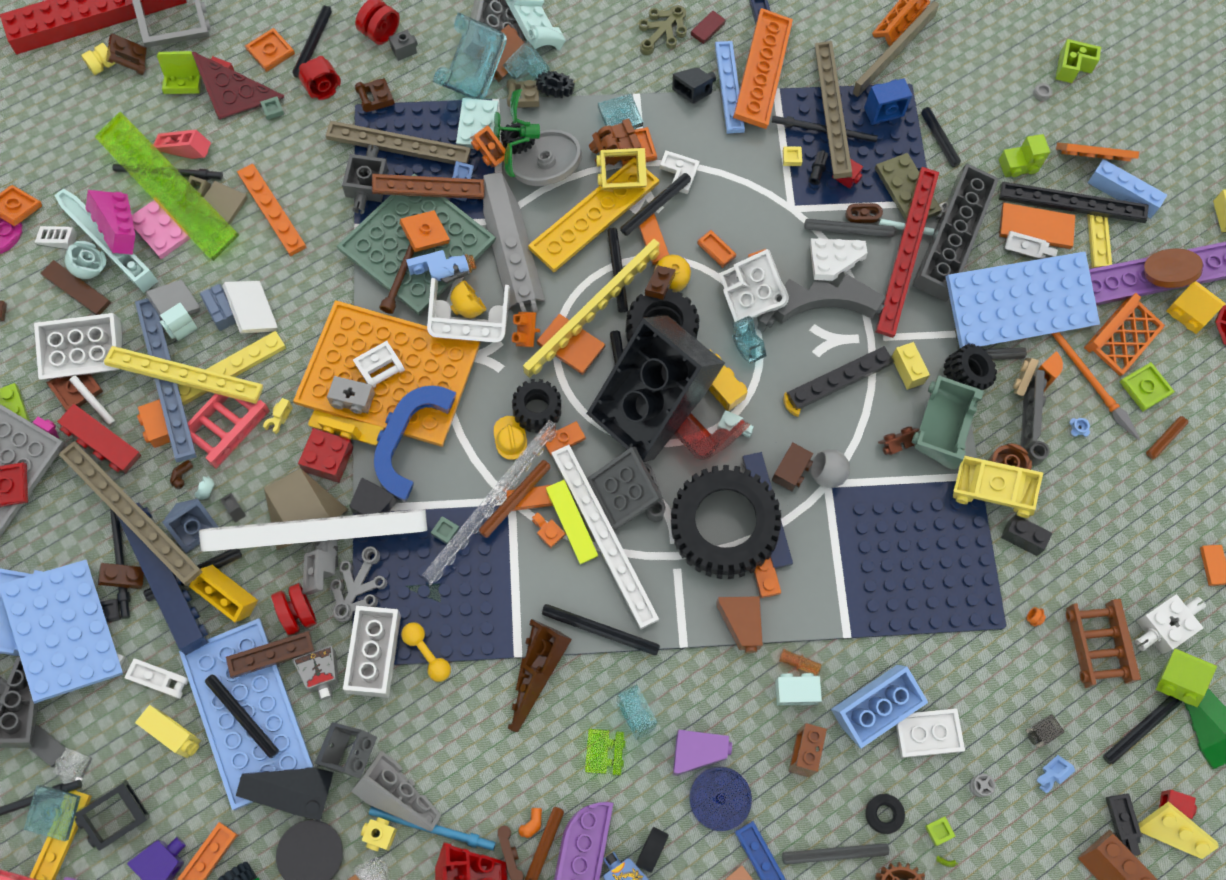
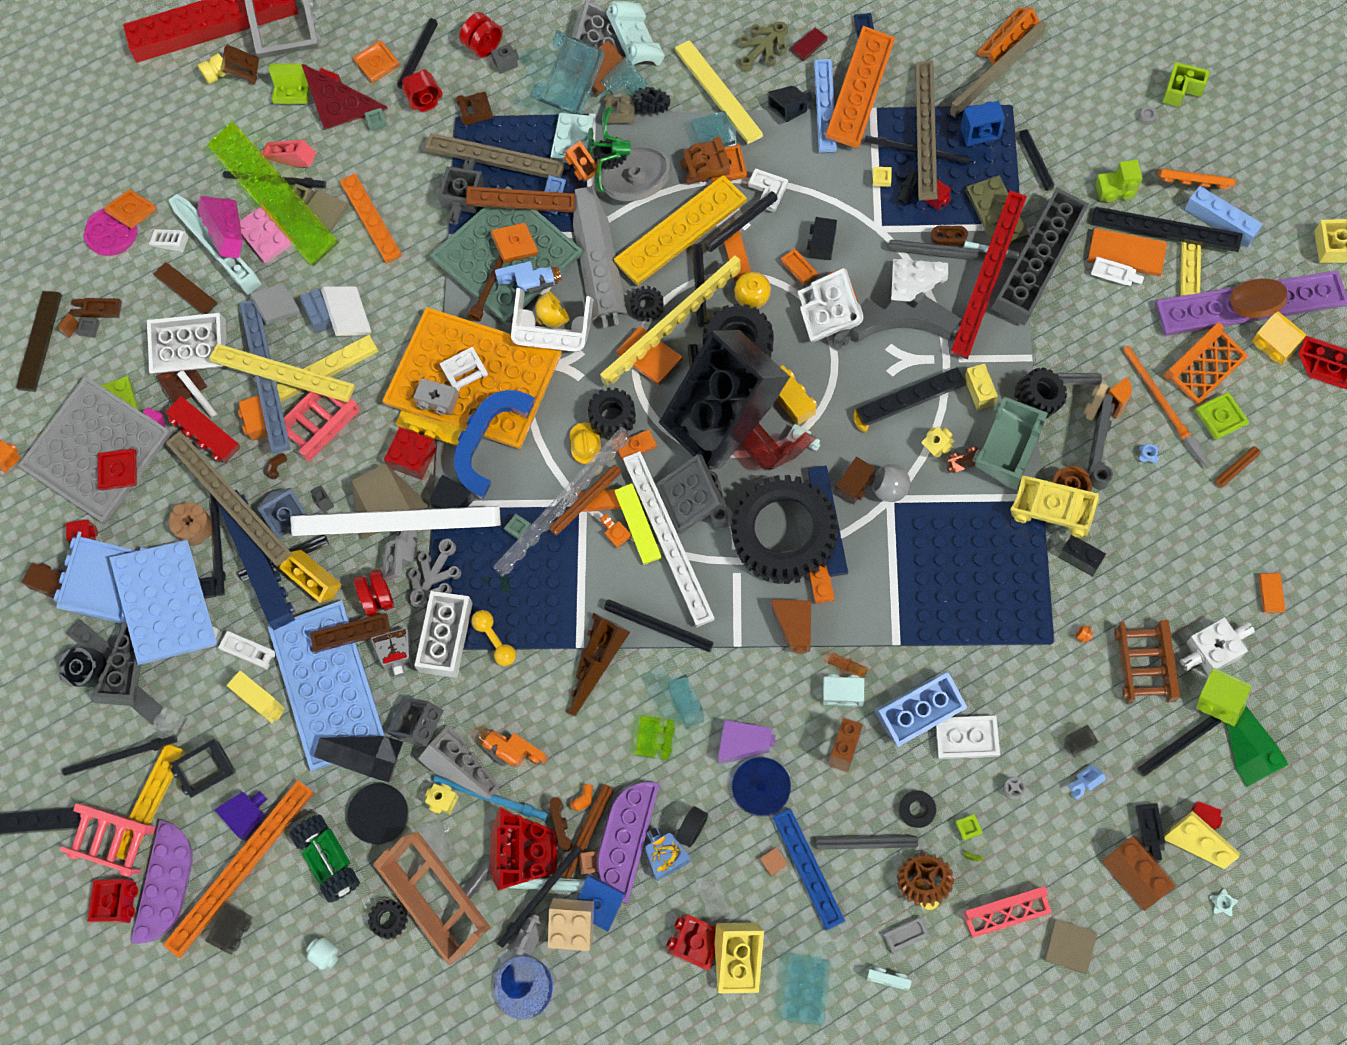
camera: 15 degrees right, 0 degrees up
(52, 812) = (150, 762): clear light blue plate -> none
(84, 260) = (194, 262): light aqua cylinder -> none
(89, 541) = (190, 523): none -> medium nougat brick
(120, 576) = (218, 556): reddish brown plate -> none
(177, 322) = (278, 323): light aqua brick -> none
(204, 488) = (297, 479): light aqua plate -> none
(242, 716) = (322, 687): black axle -> none
(280, 412) = (370, 413): light yellow plate -> none
(449, 776) = (509, 751): none -> orange plate
(525, 329) = (606, 339): orange hips -> none
(565, 280) = (644, 294): none -> black tyre
(622, 75) = (719, 92): none -> light yellow tile
(640, 162) = (727, 170): light yellow window -> none
(660, 282) = (737, 298): reddish brown plate -> none
(739, 219) = (823, 238): none -> black brick
(746, 340) = (821, 358): clear light blue brick -> none
(866, 422) = (933, 444): none -> light yellow brick
(1022, 300) = (1100, 325): light blue plate -> none

